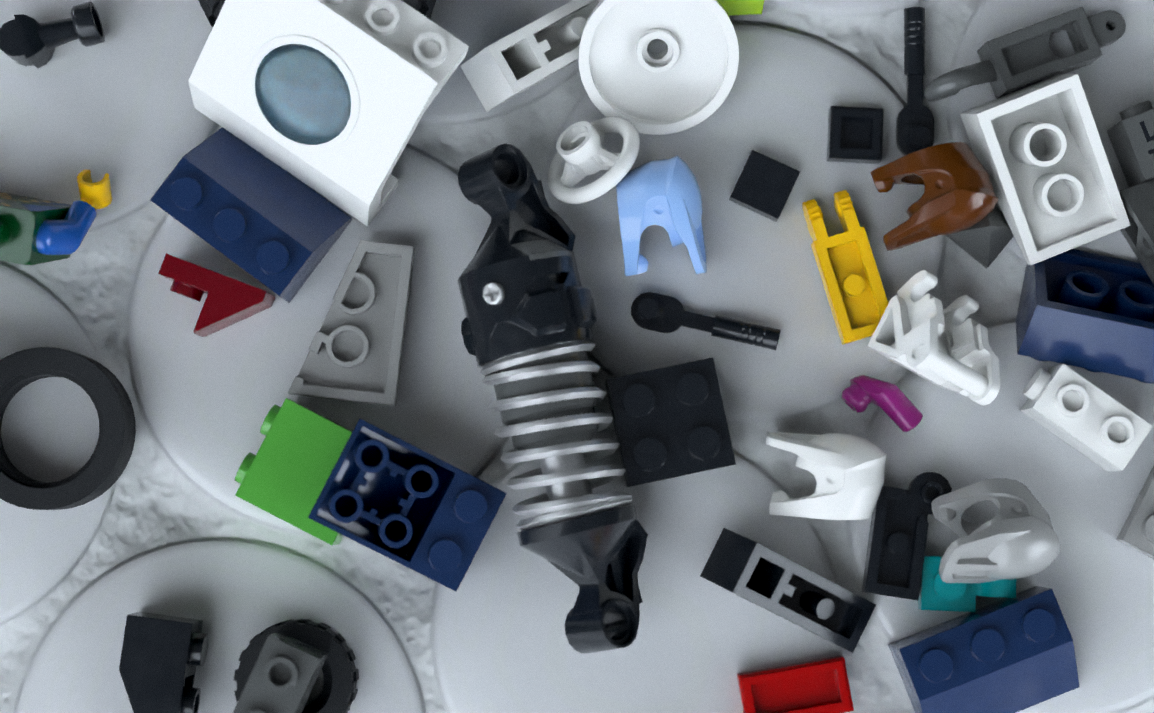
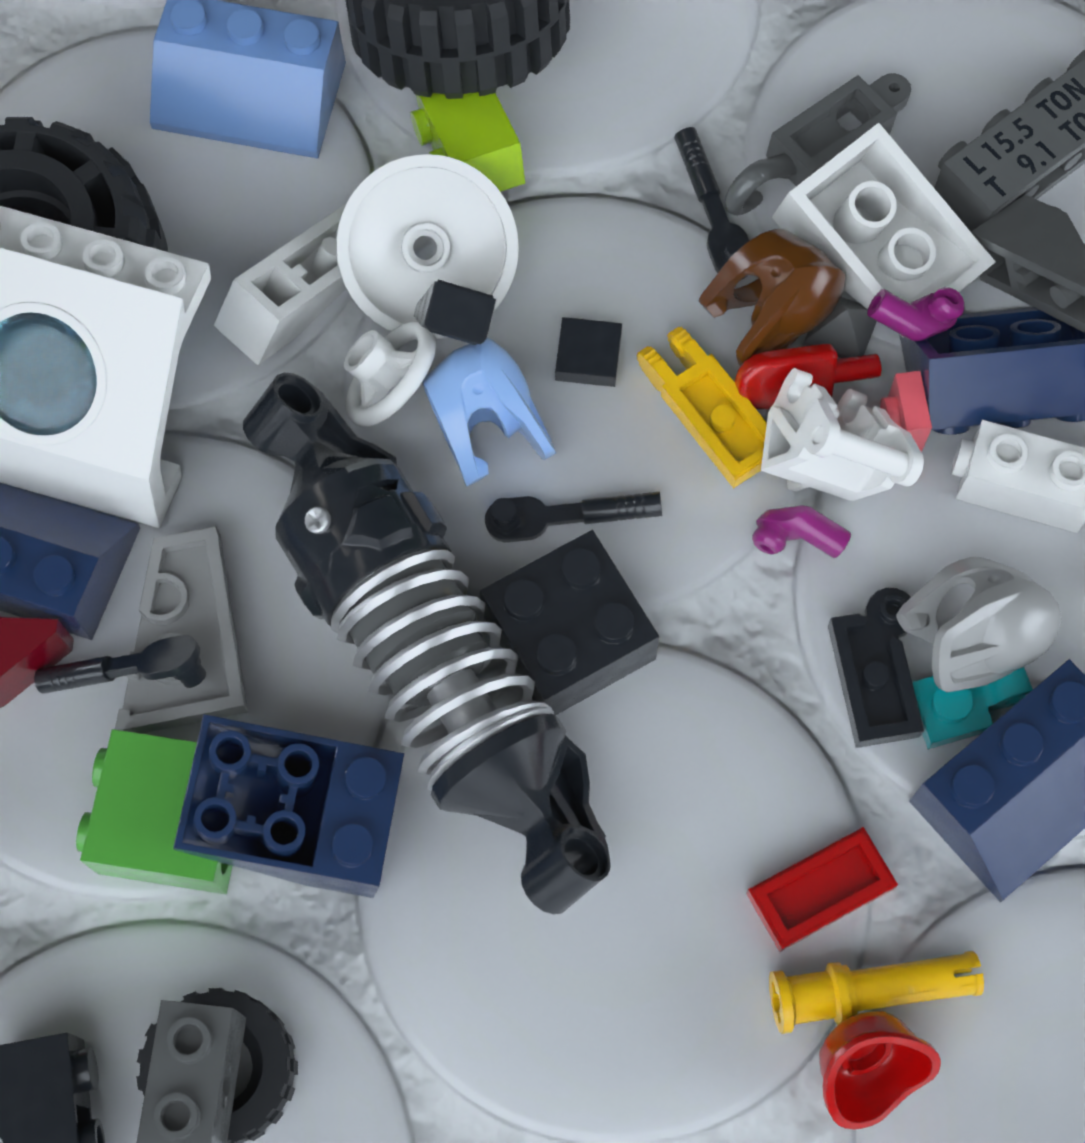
camera: 15 degrees left, 15 degrees down
(336, 352) = (162, 659): none -> black piece
(658, 140) = (456, 312): none -> black slope
(788, 589) = (768, 767): black slope -> none
(846, 473) = (793, 617): white helmet -> none
(855, 134) = (668, 273): black tile -> none
(901, 262) = (765, 372): none -> red piece
(1007, 329) = (909, 406): none -> coral plate
(1046, 258) = (919, 318): none -> magenta arm

